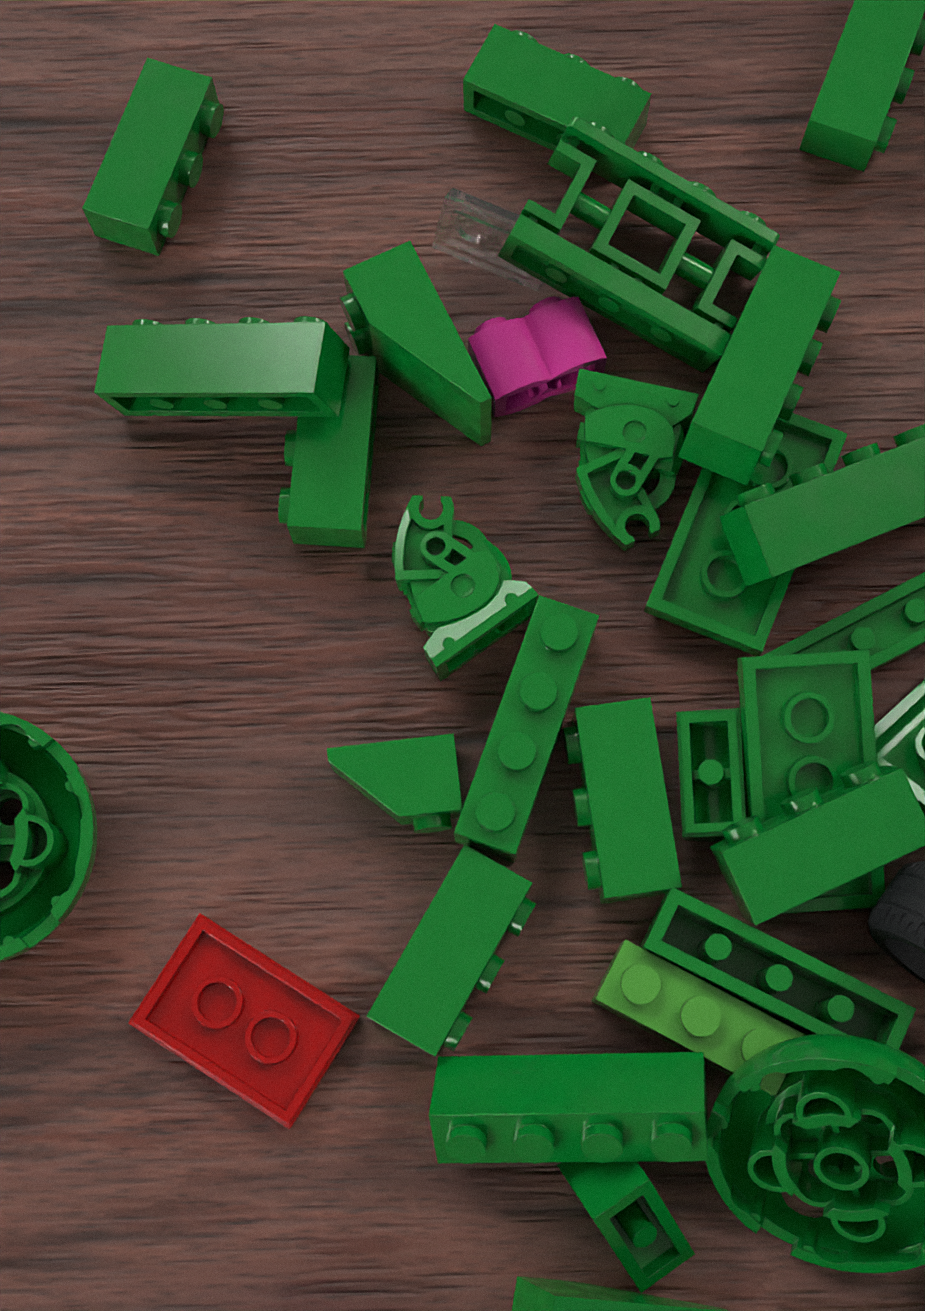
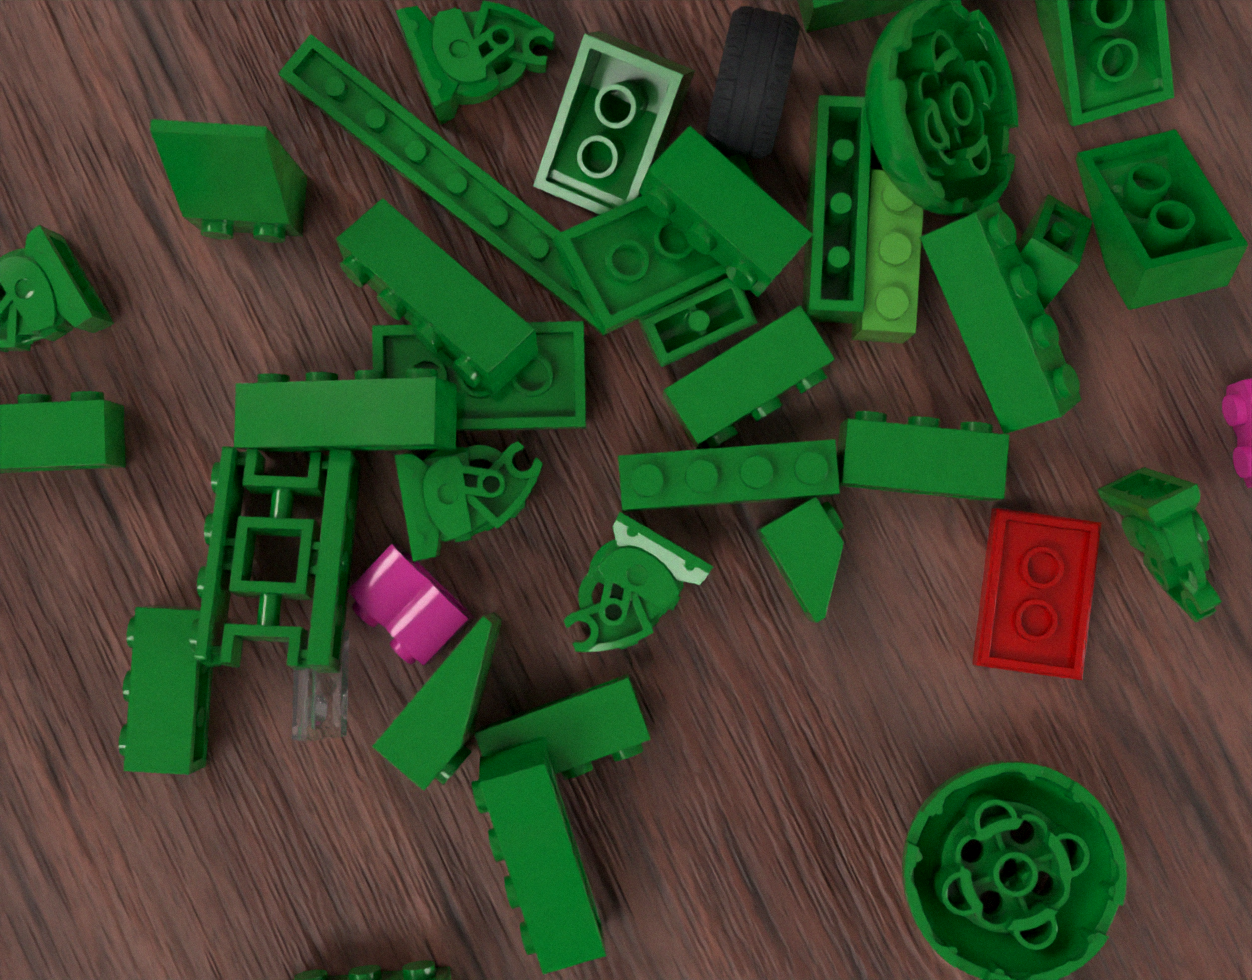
camera: 115 degrees left, 10 degrees up
(242, 1188) = (1169, 532): none -> green piece

